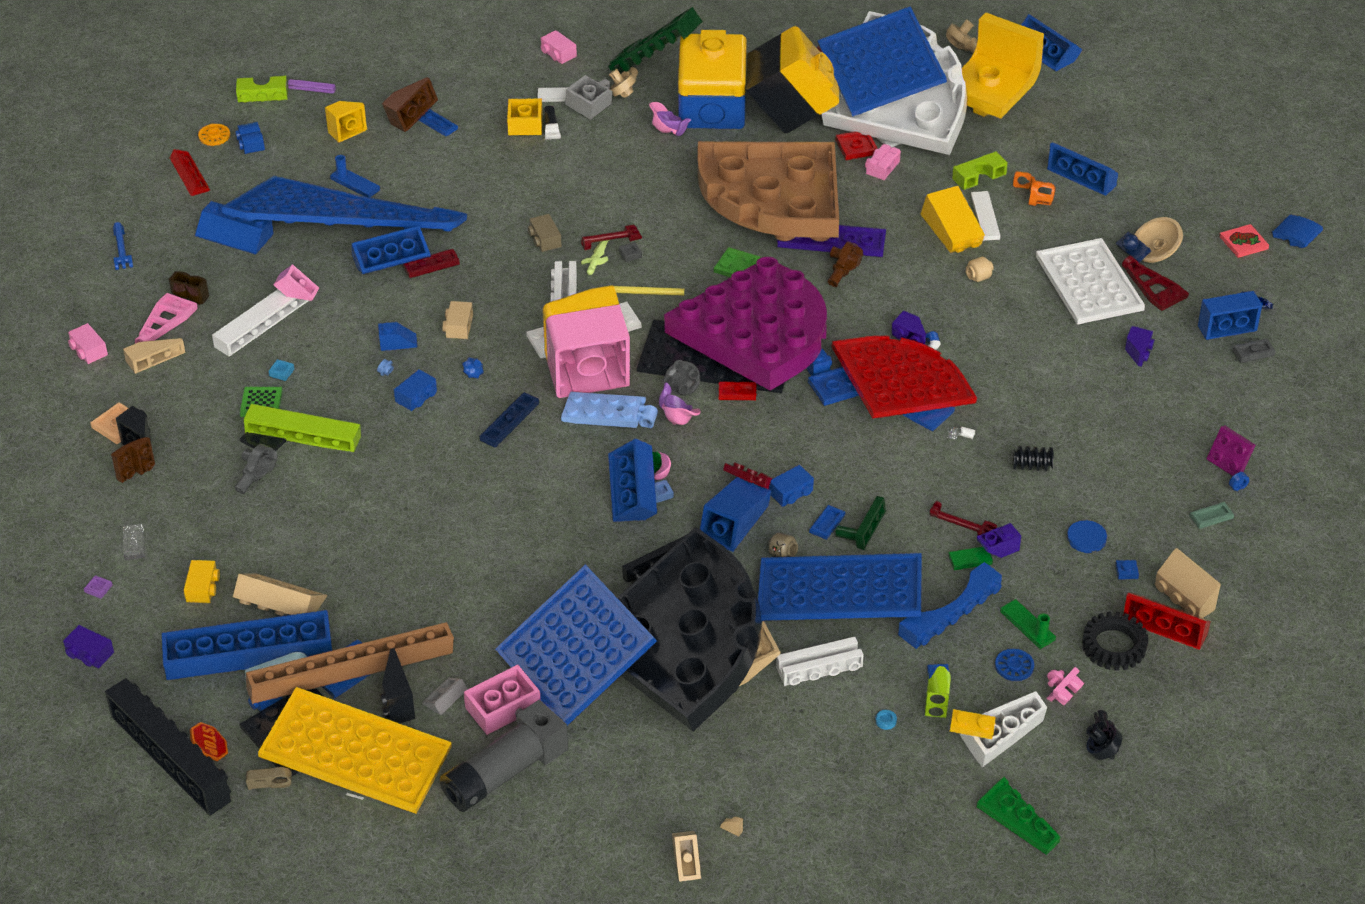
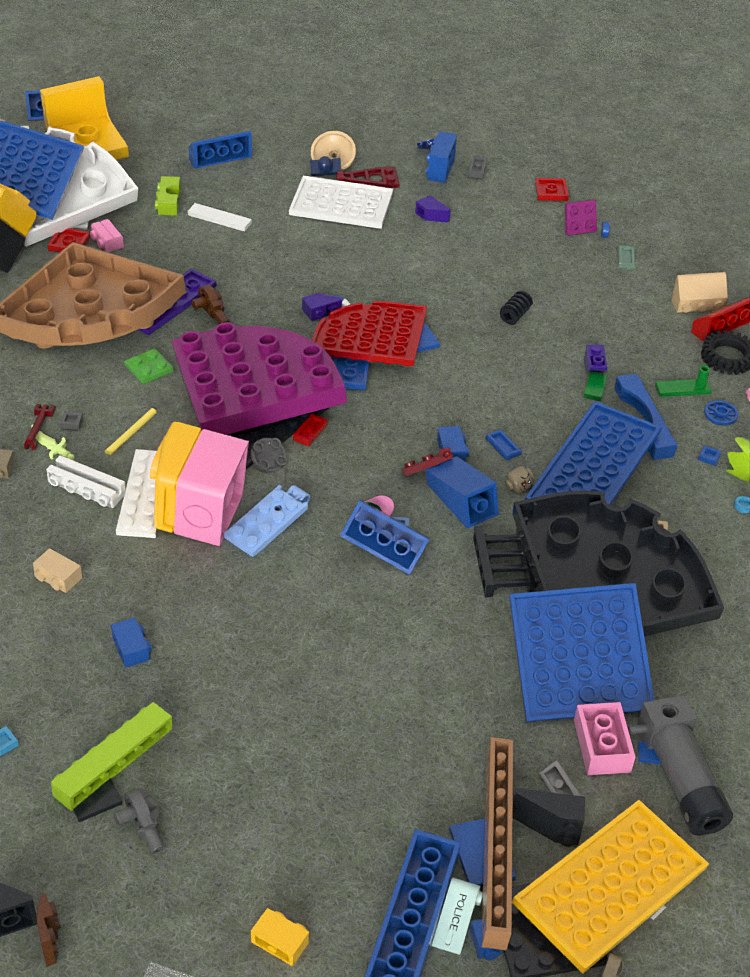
camera: 65 degrees left, 0 degrees up
(261, 396) = (32, 779): bright green tile -> none
(276, 595) = (348, 870): tan slope -> none
(385, 367) = (74, 654): medium blue plate -> none
(396, 336) = (37, 629): blue slope -> none
(473, 367) = (134, 586): blue piece -> none
(509, 419) = (226, 590): dark blue plate -> none
(675, 408) = (307, 475): hair -> none
(819, 661) = (667, 503): white brick -> none
(868, 526) = (535, 428): dark green piece -> none
(952, 219) = (217, 231): yellow slope -> none
(961, 431) = (454, 331): arm -> none
(979, 269) = (282, 244): tan head -> none
(987, 526) = (567, 365): dark red hinge -> none
(1035, 196) = (225, 179): orange piece -> none
(1087, 536) = (610, 320): blue tile -> none
(1127, 569) = (656, 317): blue plate -> none
(1244, 240) = (360, 122): coral tile -> none
(1273, 418) = (551, 189): none -> red plate
(1297, 230) = (373, 96): blue slope -> none

